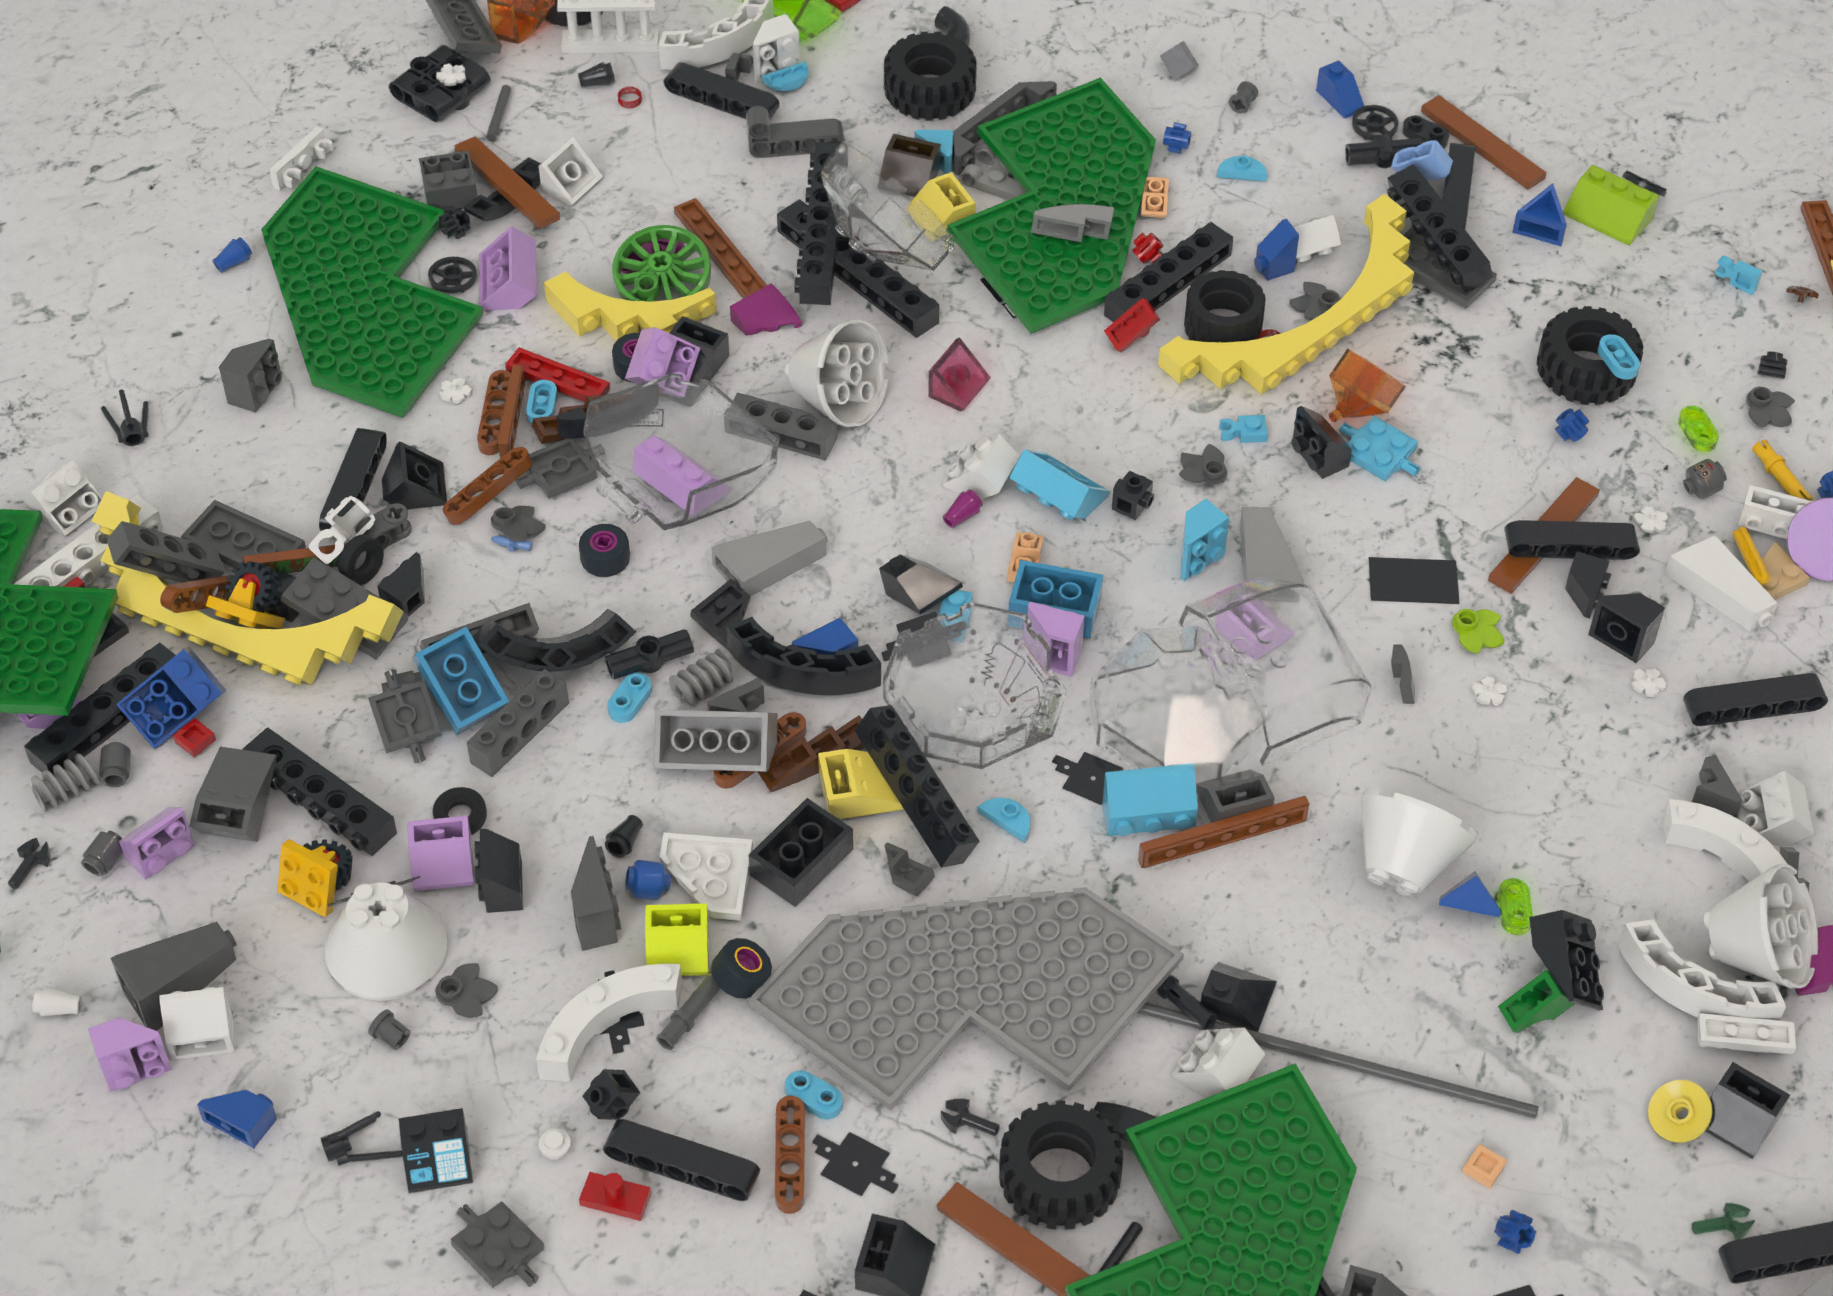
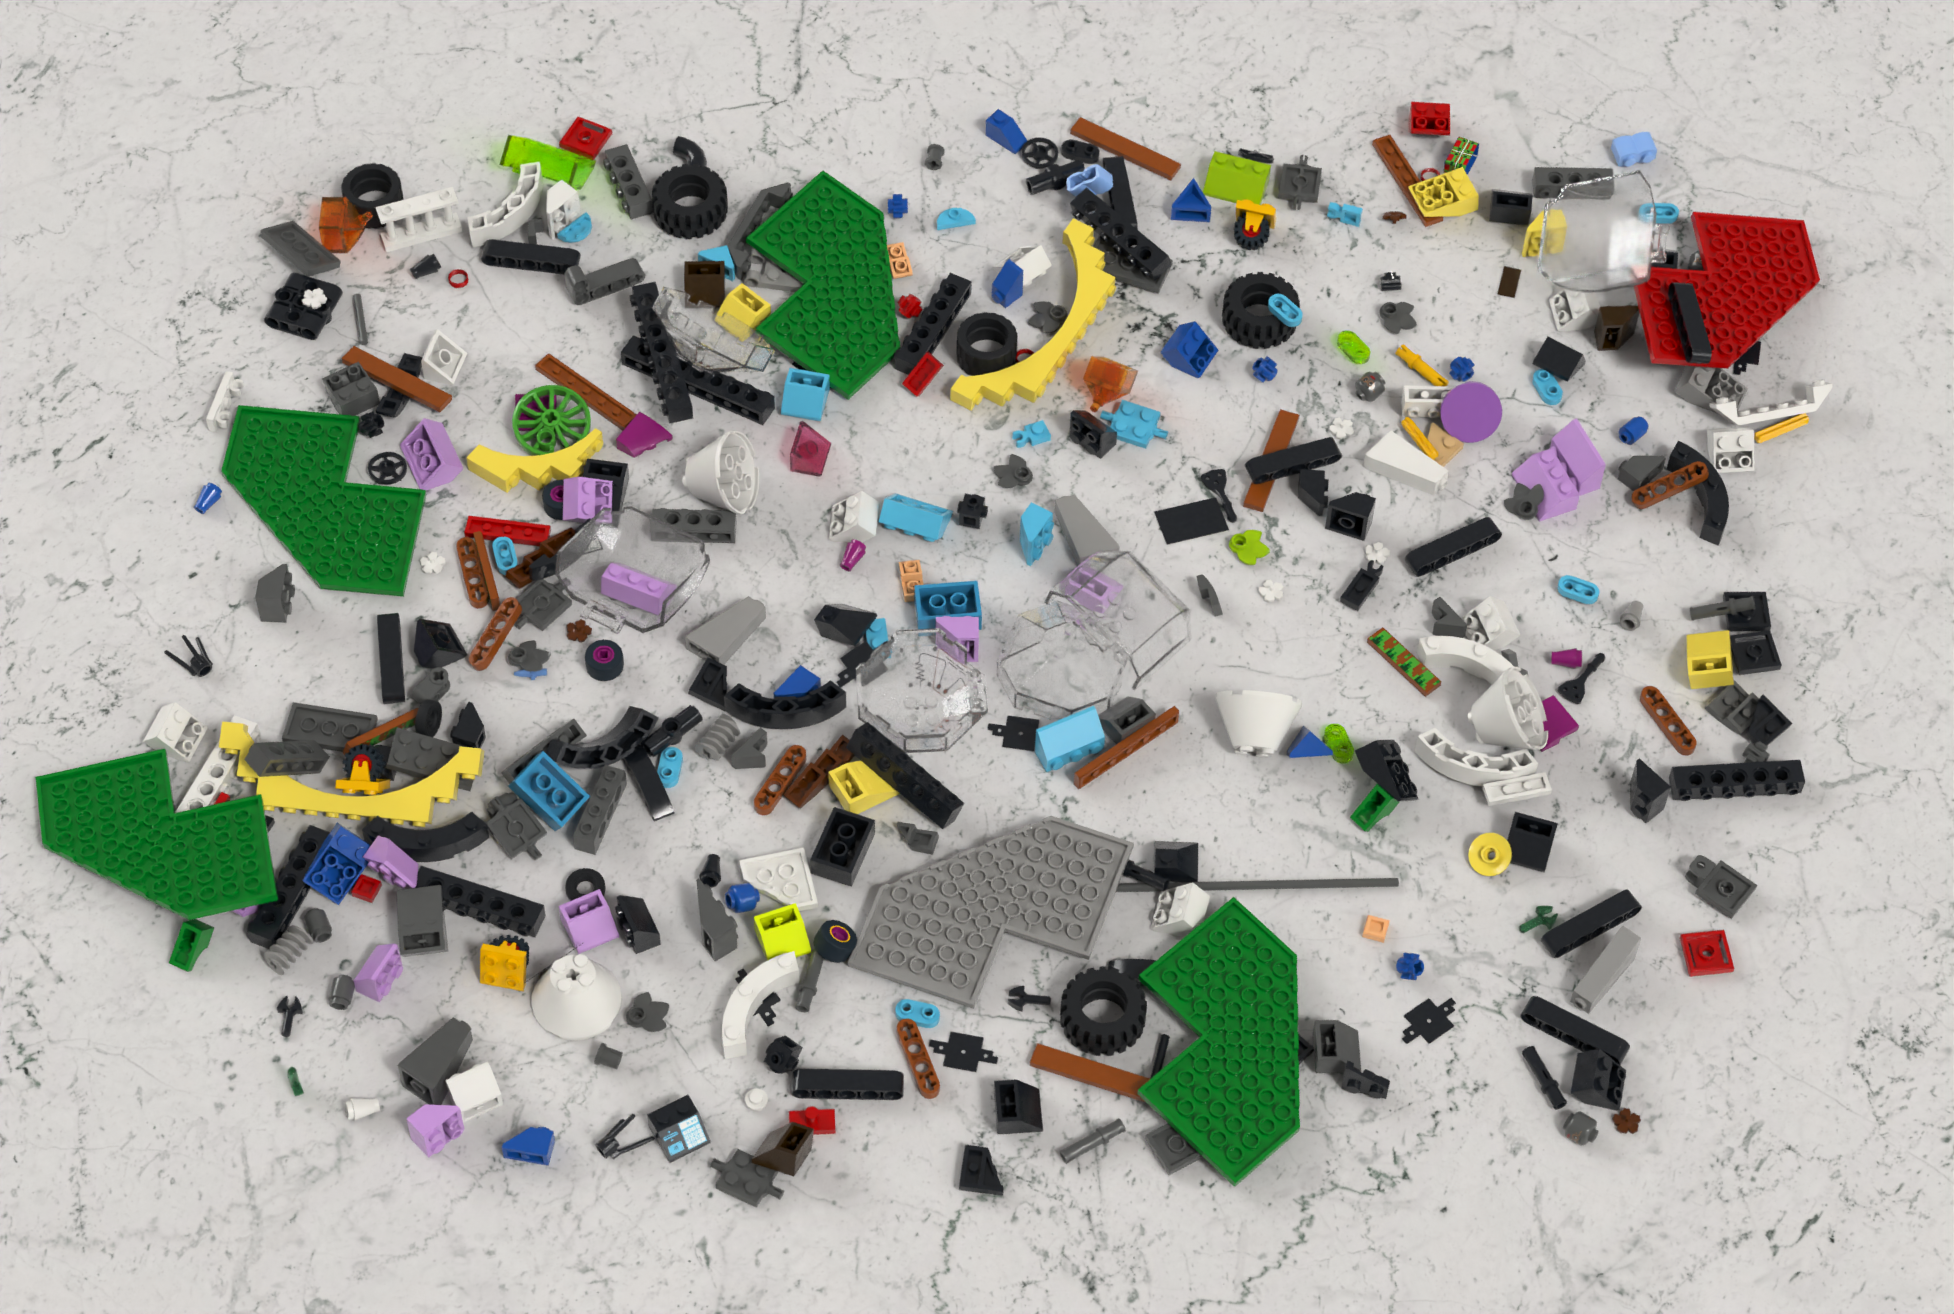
camera: 20 degrees left, 5 degrees up
(205, 587) = (325, 780): dark orange beam -> none
(231, 709) = (392, 863): none -> lavender slope
(290, 705) = (431, 844): none -> black brick
(342, 528) = (404, 696): white piece -> none
(560, 1221) = (785, 1148): none -> dark brown slope
(591, 510) = (578, 631): none -> reddish brown plant
(594, 710) = (649, 783): none -> black slope
(714, 740) = (748, 782): light grey slope -> none
(869, 41) = (628, 182): none -> dark grey brick
(979, 313) = (805, 394): none -> medium azure slope
(1007, 815) = (973, 777): medium azure plate -> none
(1073, 221) = (850, 300): light grey slope -> none
(1179, 60) = (874, 136): panel -> none
(1463, 552) = (1219, 490): none -> black piece
(1482, 380) = (1189, 349): none -> blue slope
(1613, 716) = (1361, 586): none -> black plate
(1615, 255) = (1253, 223): none -> plate
(1640, 827) = (1404, 662): none -> tile
(1691, 227) = (1300, 182): none -> dark grey plate

